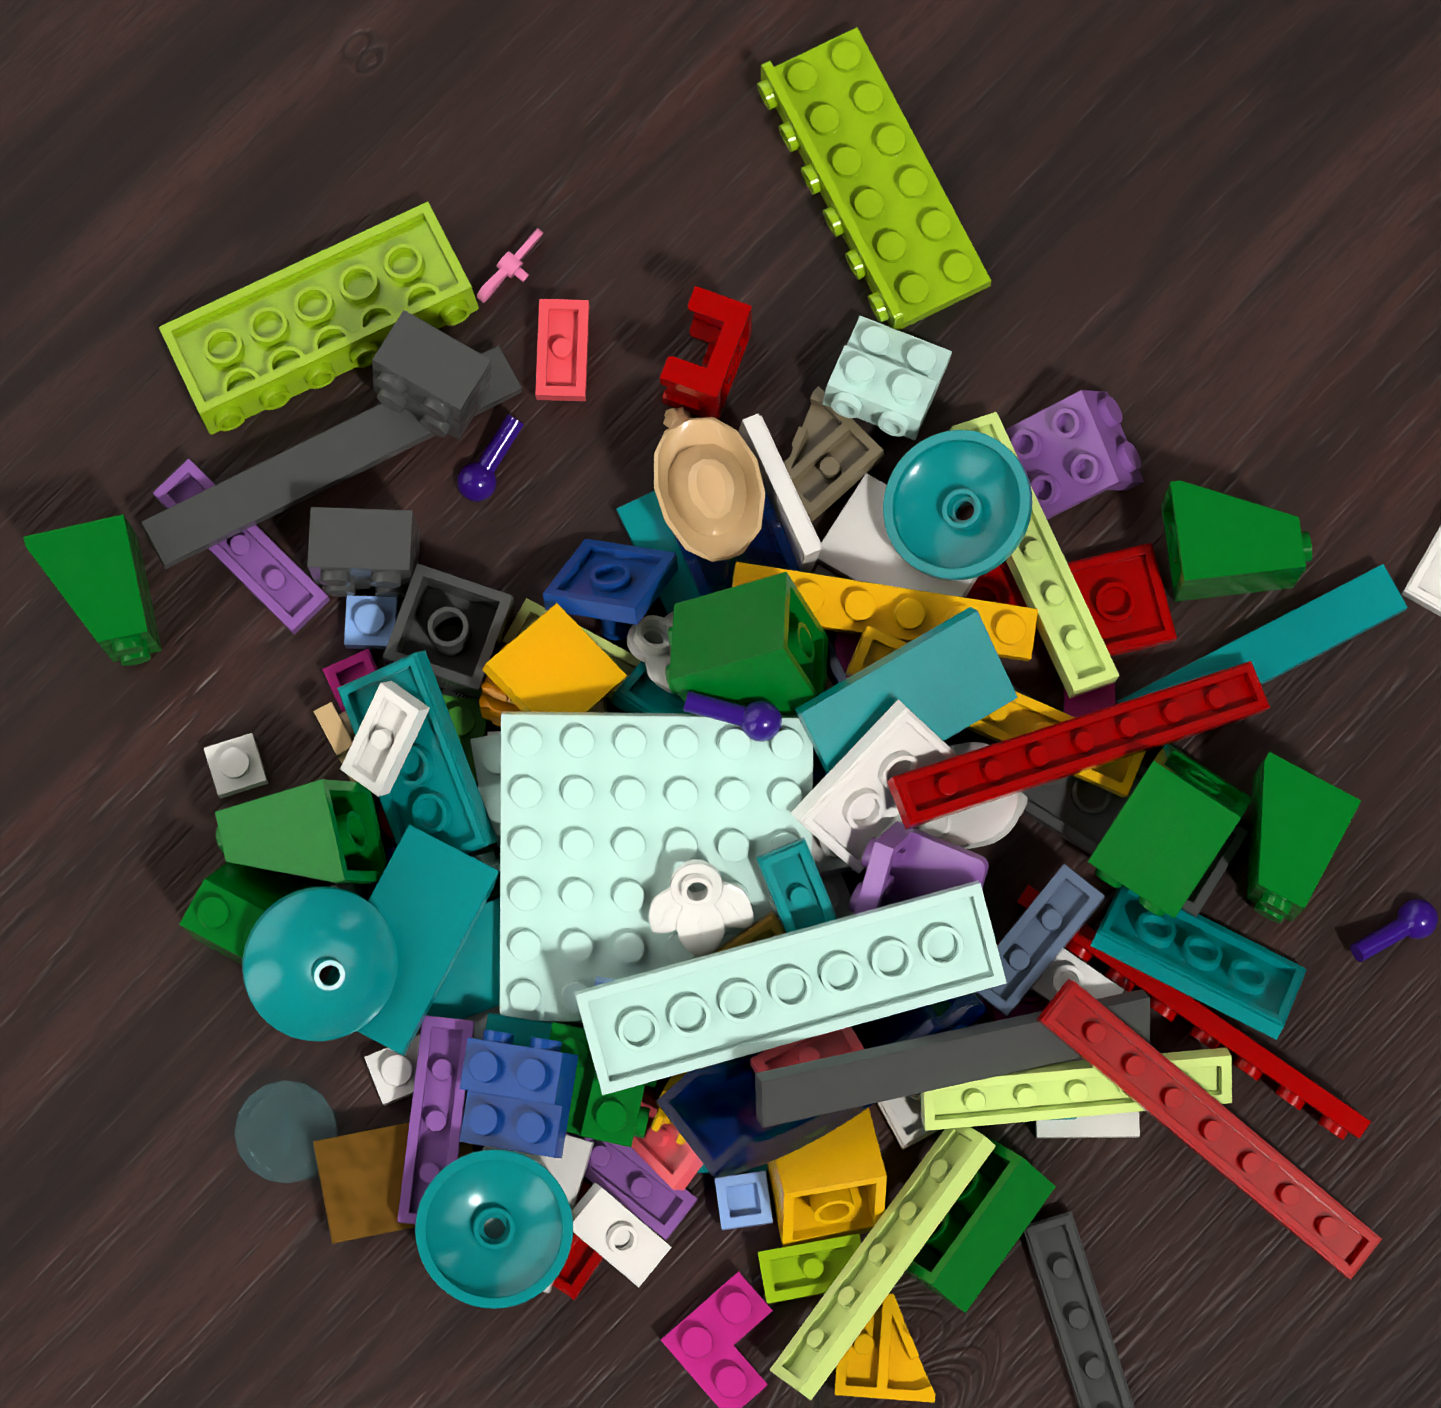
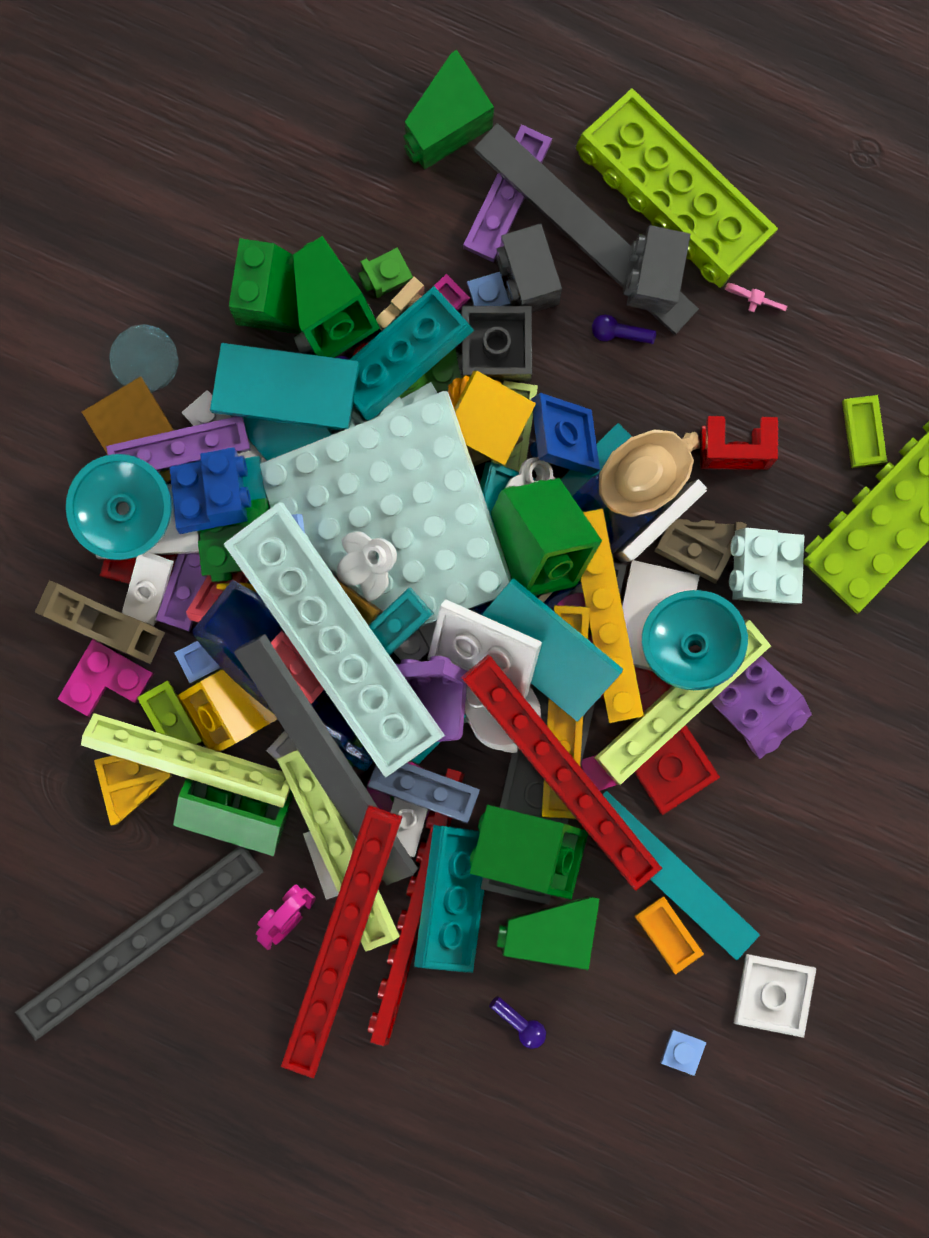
camera: 65 degrees right, 5 degrees up
(236, 765) = (365, 241): white plate -> none
(289, 752) = (385, 273): none -> bright green bracket
(301, 938) = (260, 322): teal dish -> none
(384, 738) = (408, 325): white plate -> none
(562, 350) = (710, 350): coral plate -> none
(645, 1316) = (99, 622): none -> dark tan arch
(746, 187) = (864, 431): none -> lime tile
(758, 719) = (497, 557): dark purple bar -> none
(1152, 1210) = (277, 925): none -> dark pink plate
(1229, 544) = (734, 828): green slope -> none
(1342, 686) = (669, 935): none -> light orange tile

